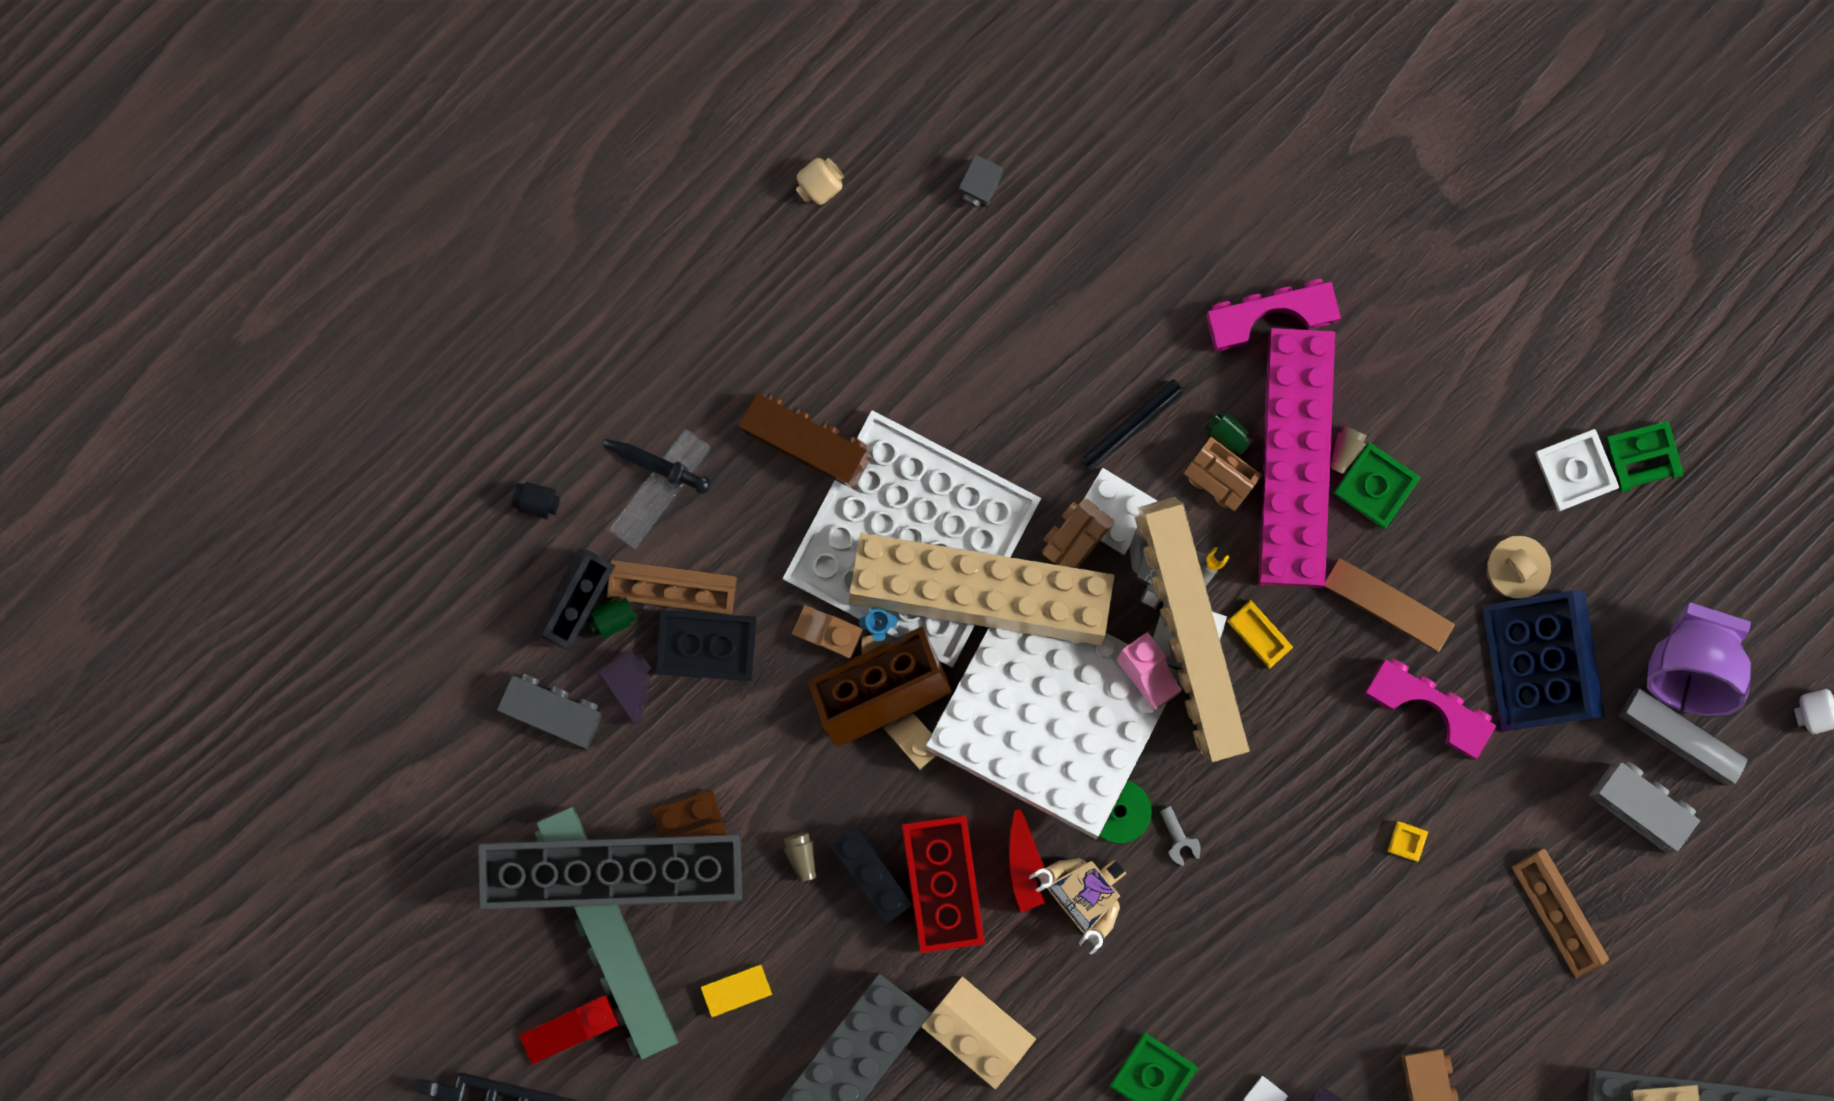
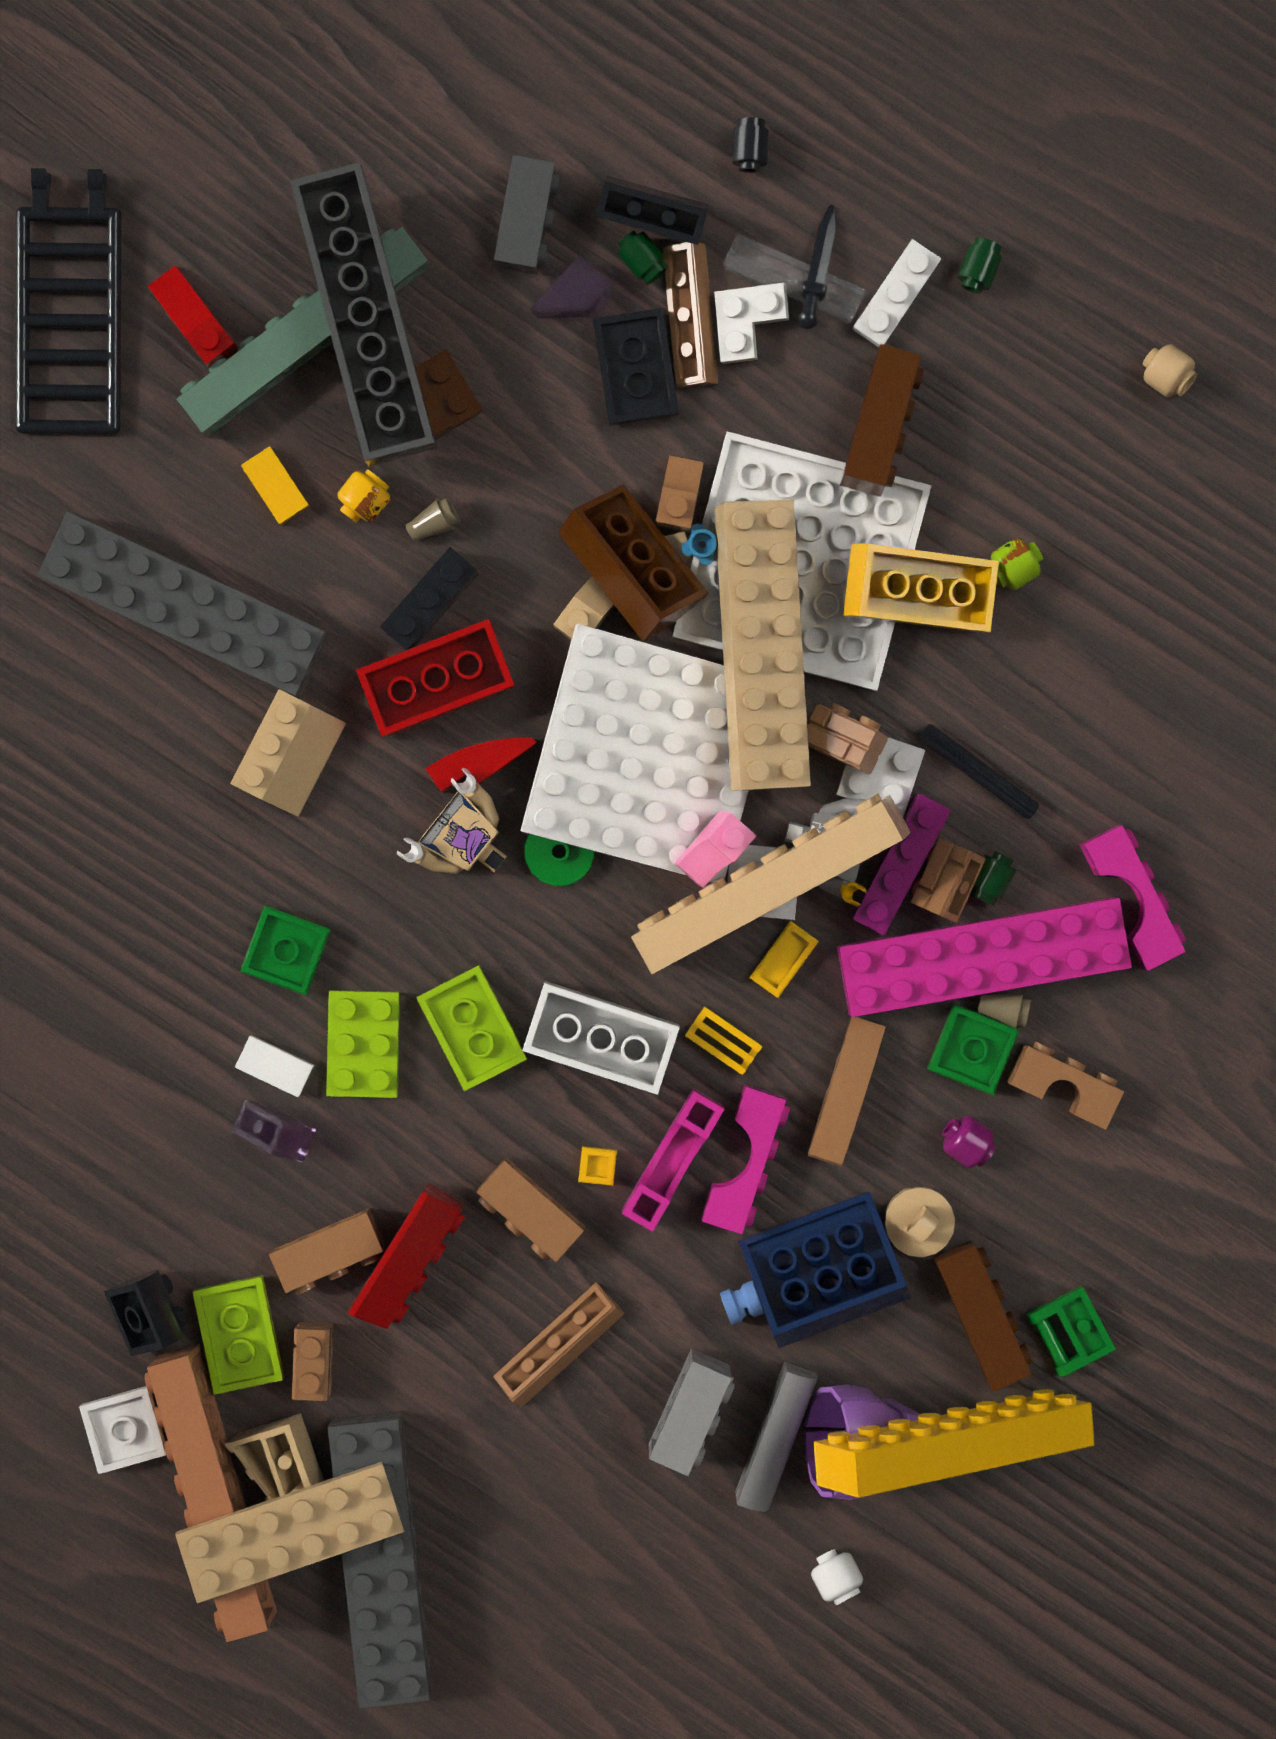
camera: 80 degrees right, 5 degrees up
(680, 544) = (739, 313): none -> white plate
(688, 324) = (980, 265): none -> dark green brick
(695, 402) = (896, 293): none -> white plate
(765, 913) = (363, 496): none -> yellow head
(957, 352) = (1017, 563): none -> lime head
(962, 439) = (920, 588): none -> yellow brick
(980, 182) = (1208, 546): dark grey brick -> none
(1178, 837) = (546, 920): light grey bar -> none
(1203, 514) = (900, 865): none -> magenta brick
(1252, 1026) = (363, 1044): none -> lime plate
(1260, 925) = (471, 1028): none -> lime plate
(1294, 811) = (601, 1037): none -> white brick
(1340, 685) = (748, 1057): none -> yellow tile
(1415, 773) = (672, 1159): none -> dark pink arch
(1434, 910) = (529, 1210): none -> medium nougat brick
(1441, 389) = (1094, 1097): none -> medium nougat arch
(1452, 1029) = (407, 1257): none -> red slope
(1457, 508) = (968, 1141): none -> magenta head
(1557, 740) = (741, 1302): none -> medium blue wheel
(1576, 470) = (1039, 1261): white plate -> none
(1613, 530) = (983, 1316): none -> reddish brown brick
(1718, 579) = (952, 1443): none -> yellow brick

